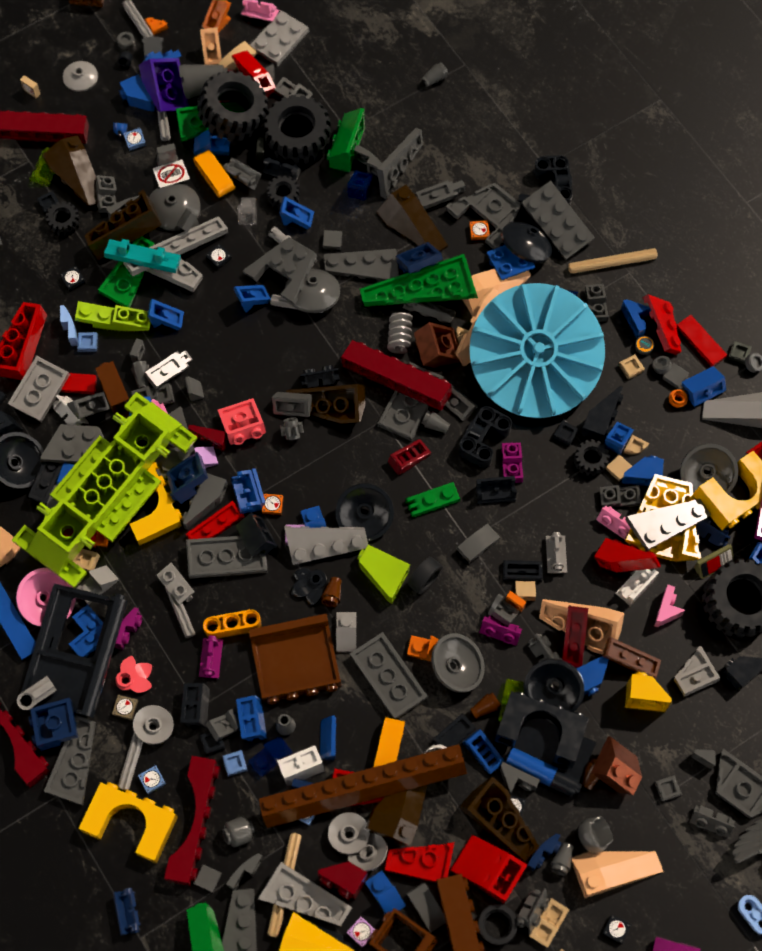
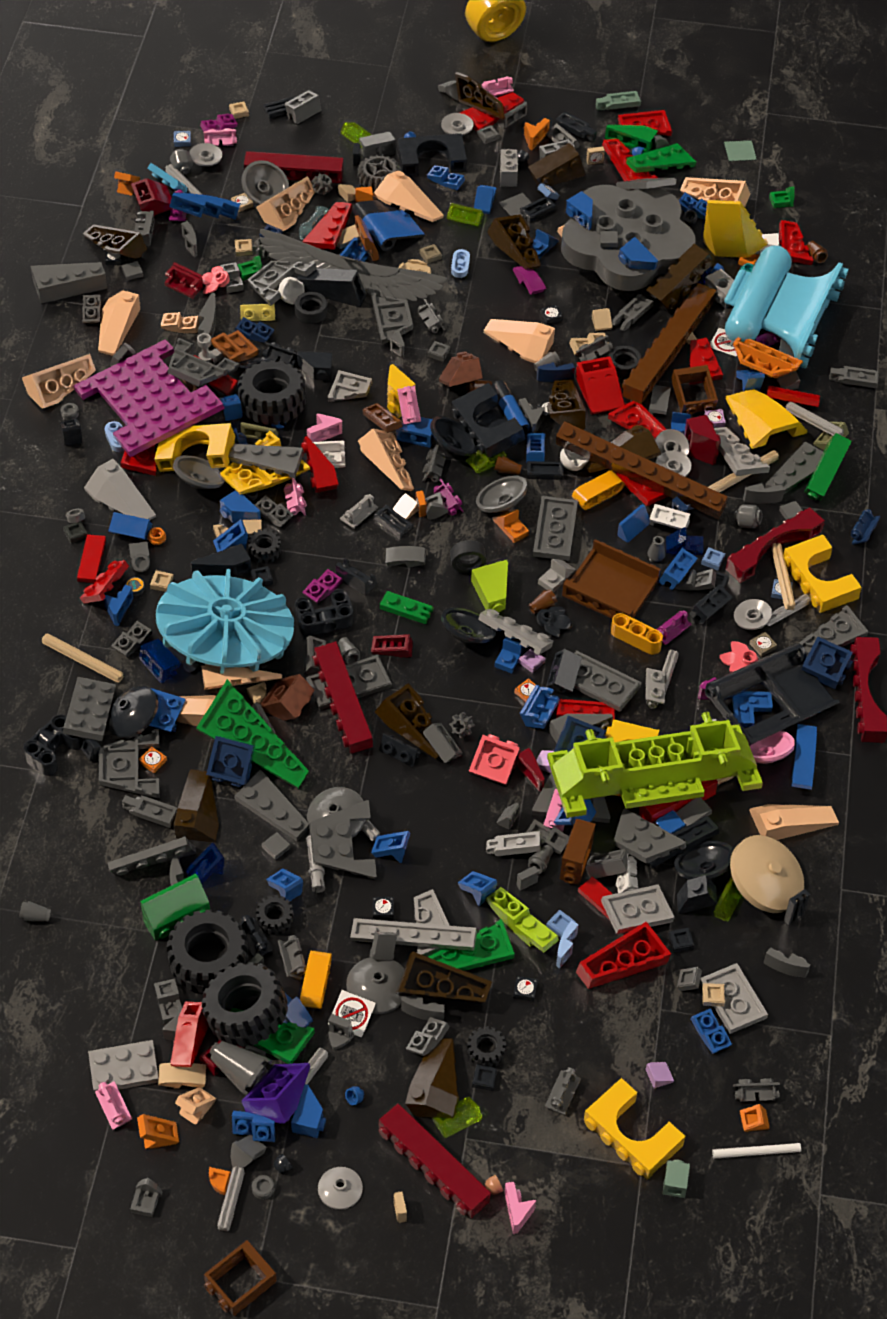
camera: 140 degrees left, 15 degrees down
(37, 692) = (831, 689): light grey piece -> none
(134, 139) = (351, 1074): tile -> none
(142, 255) = (455, 934): teal hinge -> none
(157, 787) = (783, 577): none -> tan axle
(247, 211) = (322, 920): clear brick -> none
(399, 332) = (303, 727): light grey piece -> none
(575, 635) = (405, 450): dark red plate -> none
(595, 834) = (514, 357): dark grey hair -> none
(613, 674) = (409, 405): none -> bright pink hinge

